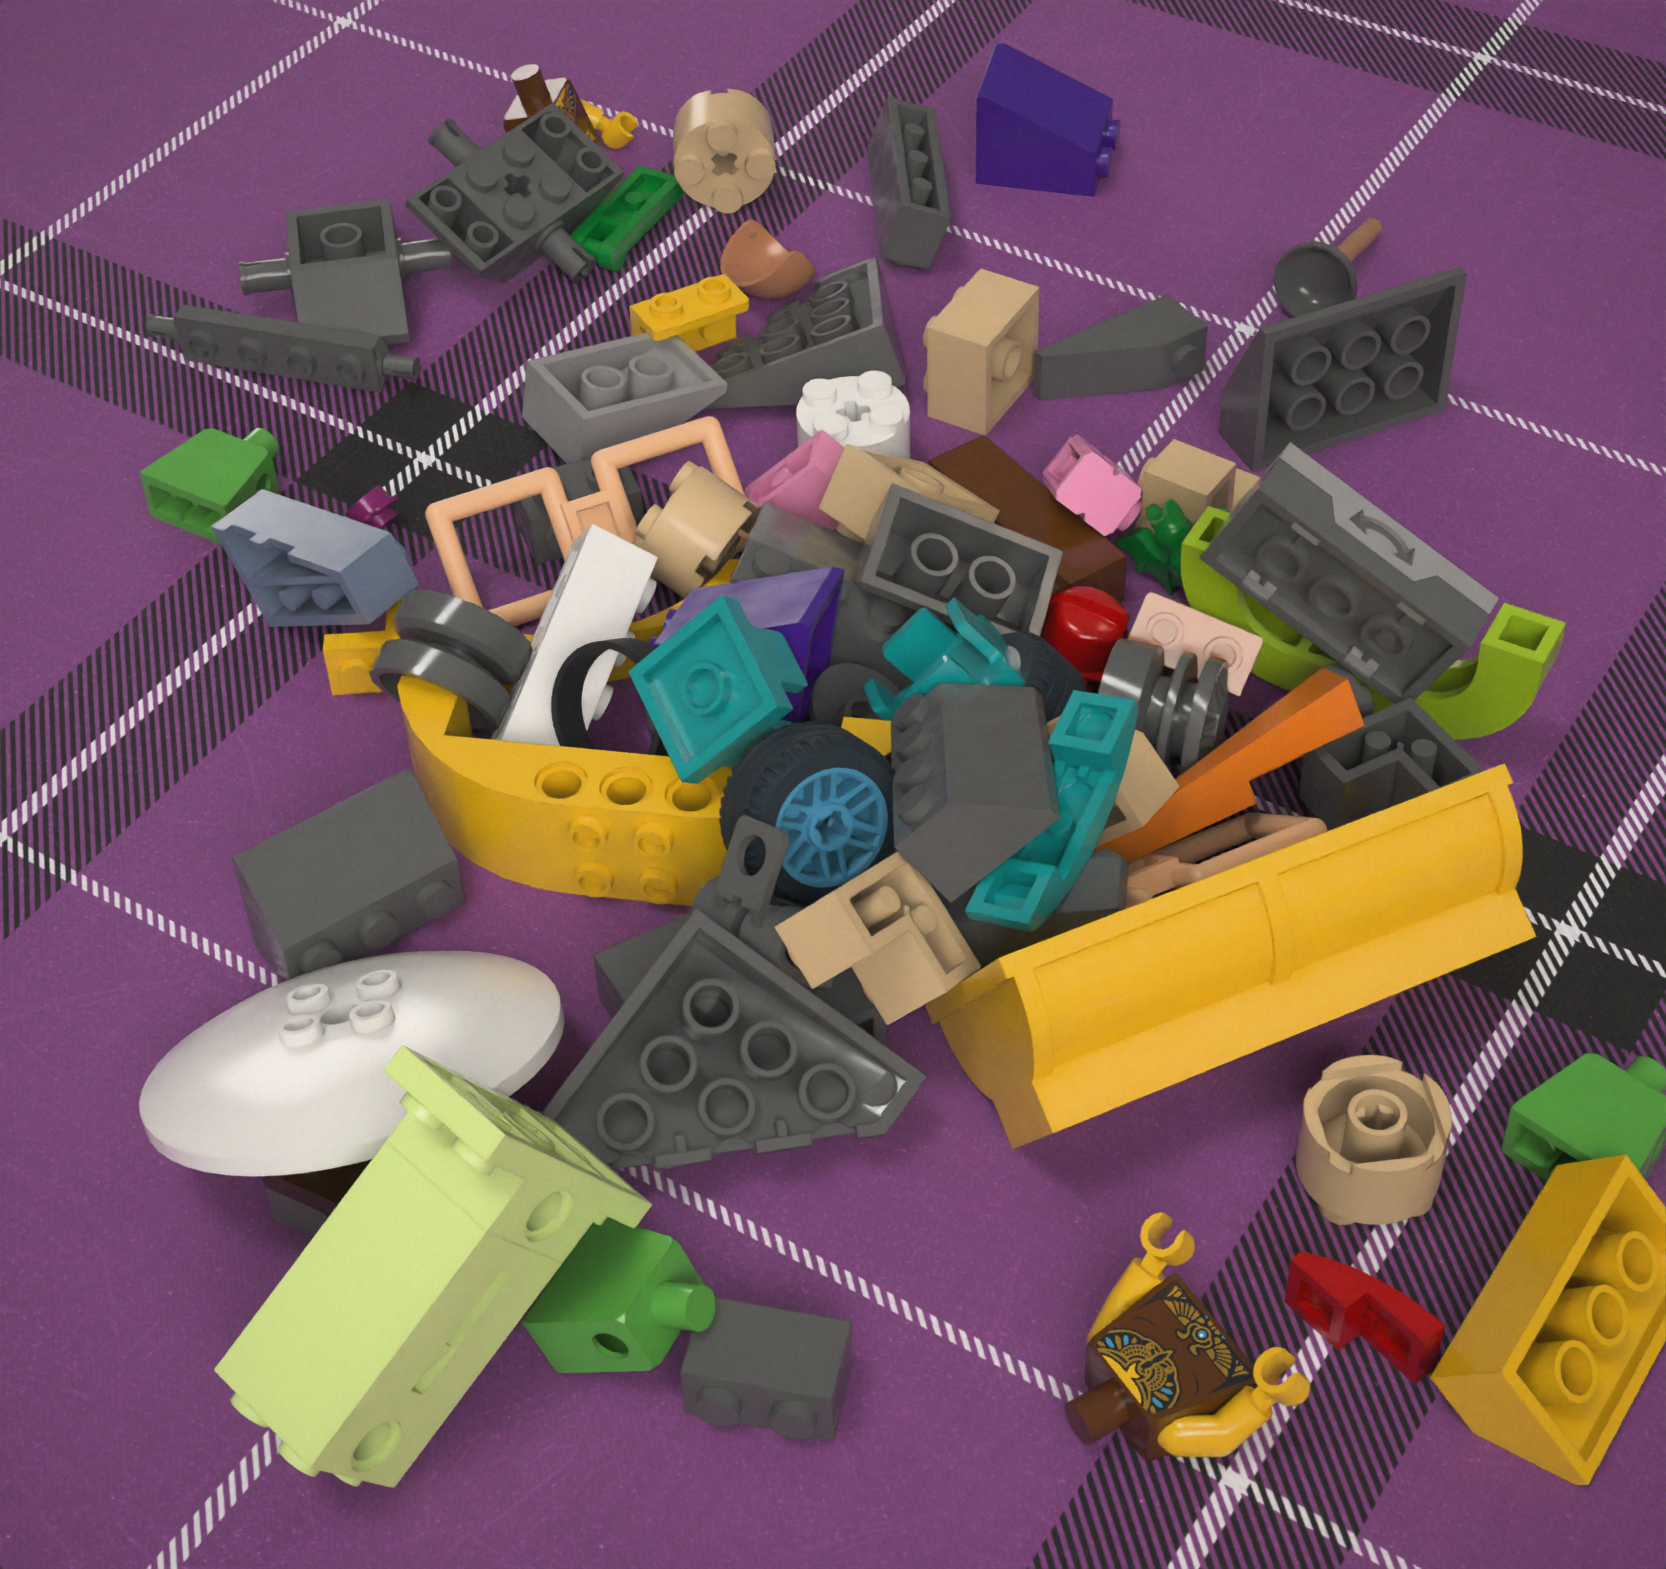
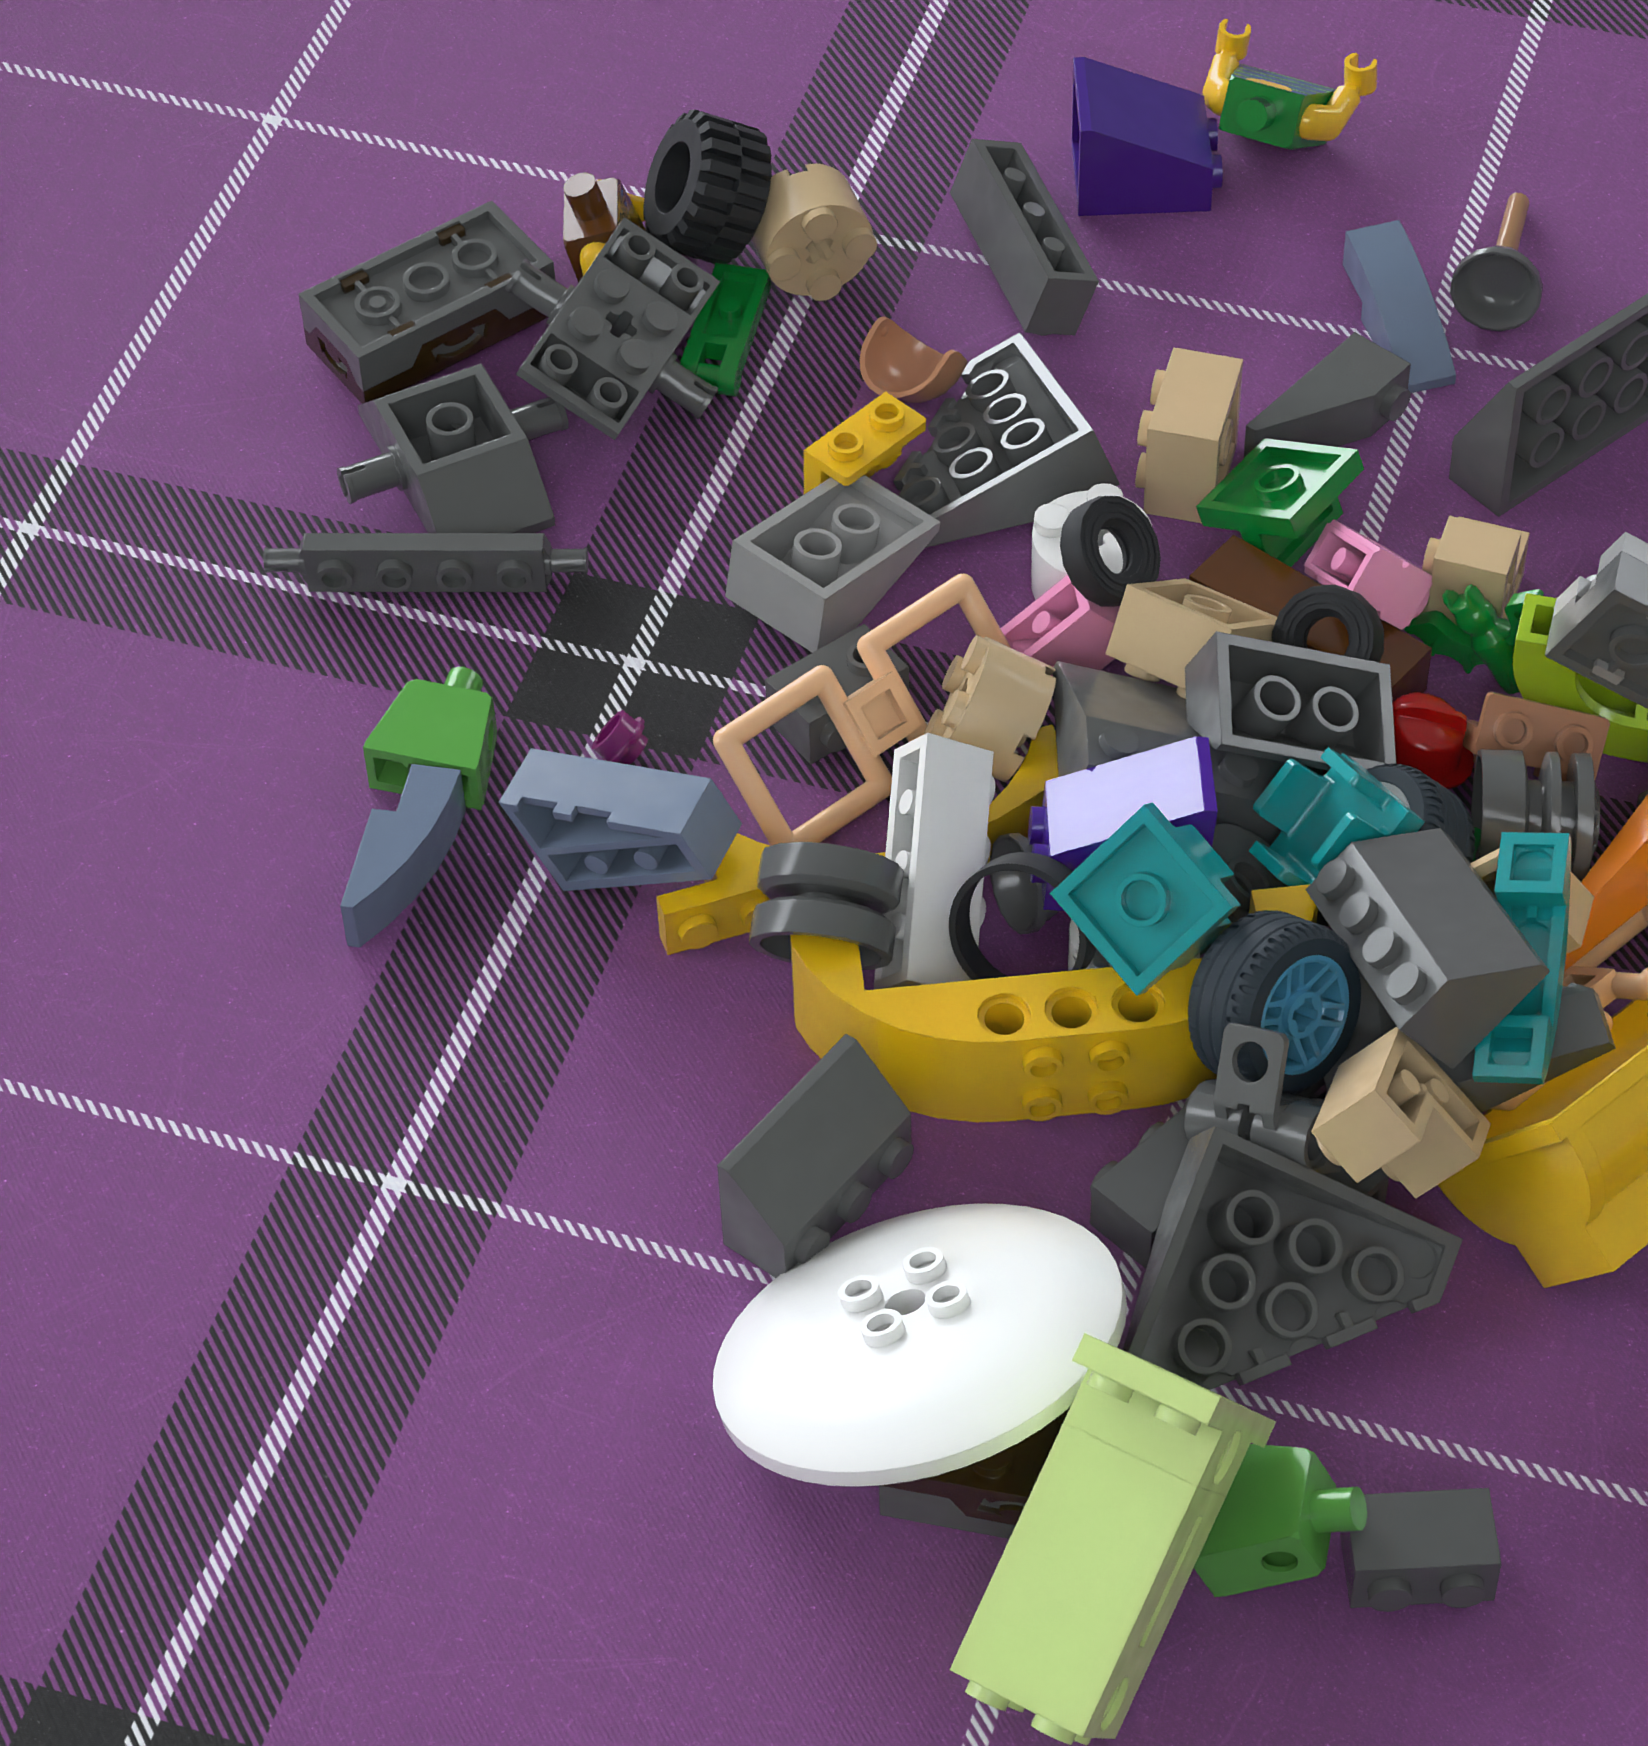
camera: 15 degrees left, 5 degrees up
(136, 566) = (402, 851): none -> sand blue slope
(371, 150) = (422, 304): none -> dark grey piece
(643, 98) = (708, 187): none -> black tyre
(865, 390) = (1082, 554): none -> black tyre
(1027, 492) = (1323, 601): none -> black tyre
(1042, 411) = (1282, 495): none -> green bracket
(1180, 119) = (1278, 106): none -> torso
(1222, 283) = (1398, 302): none -> sand blue slope

